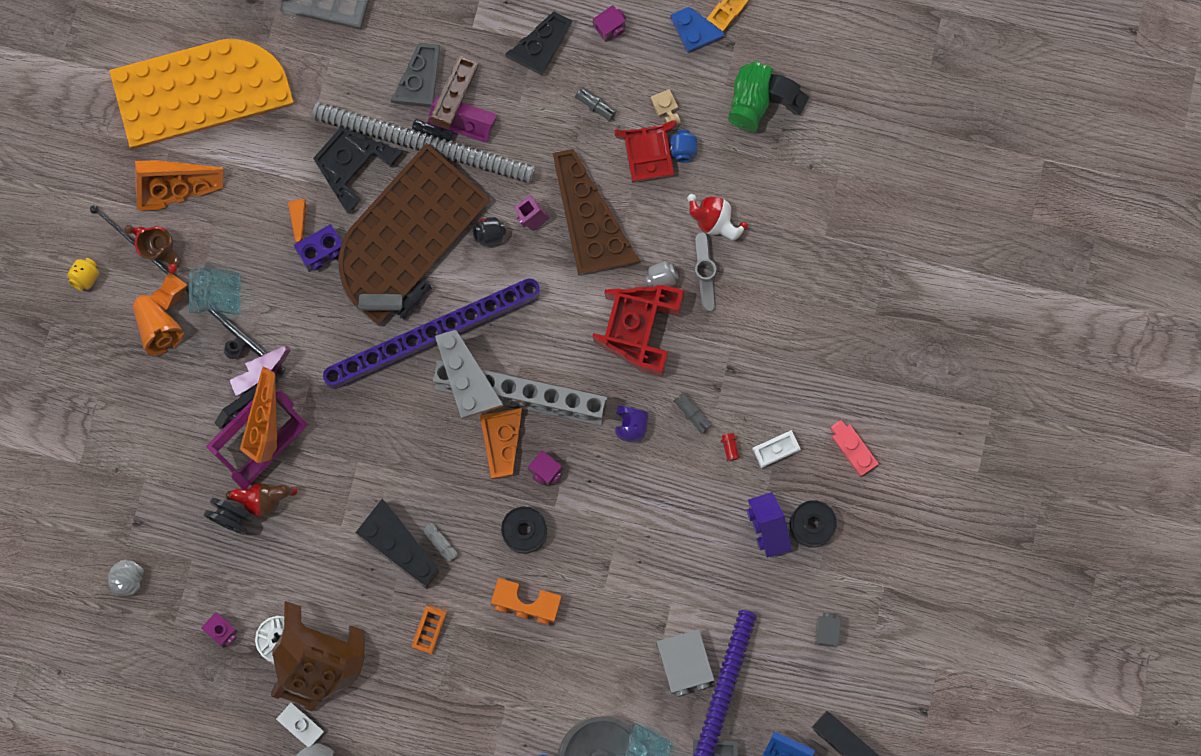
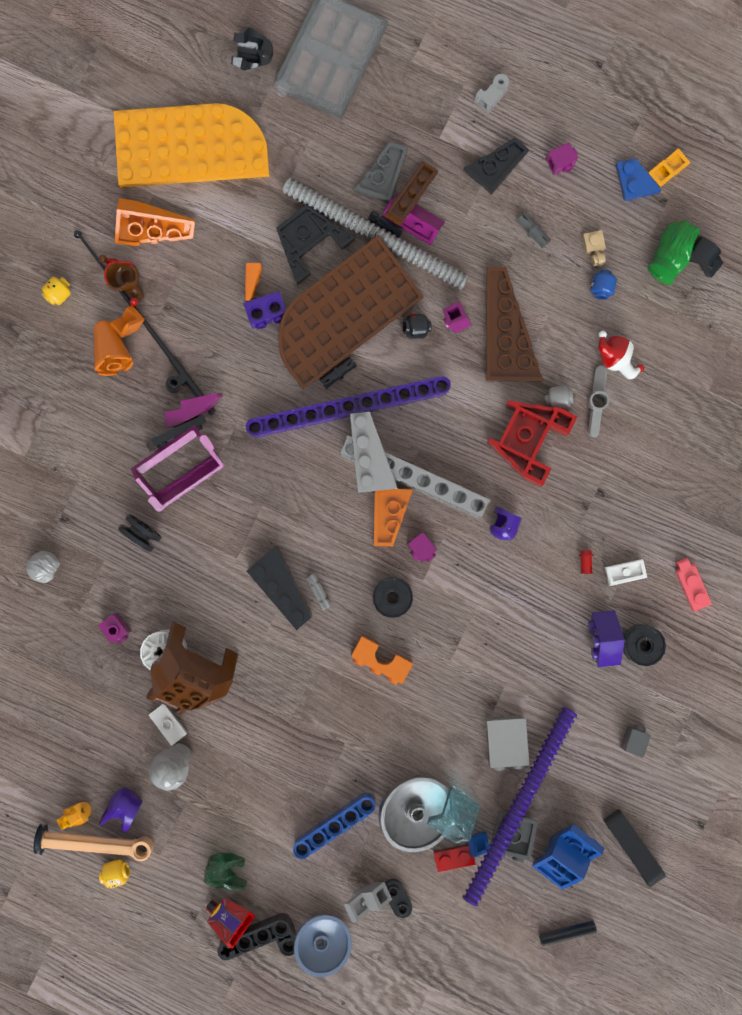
camera: 15 degrees right, 10 degrees up
(214, 290) = (167, 329): clear light blue bracket -> none
(261, 428) = (181, 464): orange wedge -> none
(261, 498) = (172, 522): piece -> none
(380, 302) = (308, 370): dark grey slope -> none
(434, 610) = (302, 650): orange slope -> none
(648, 151) = (571, 283): red piece -> none
(692, 413) = (559, 525): dark grey pin -> none

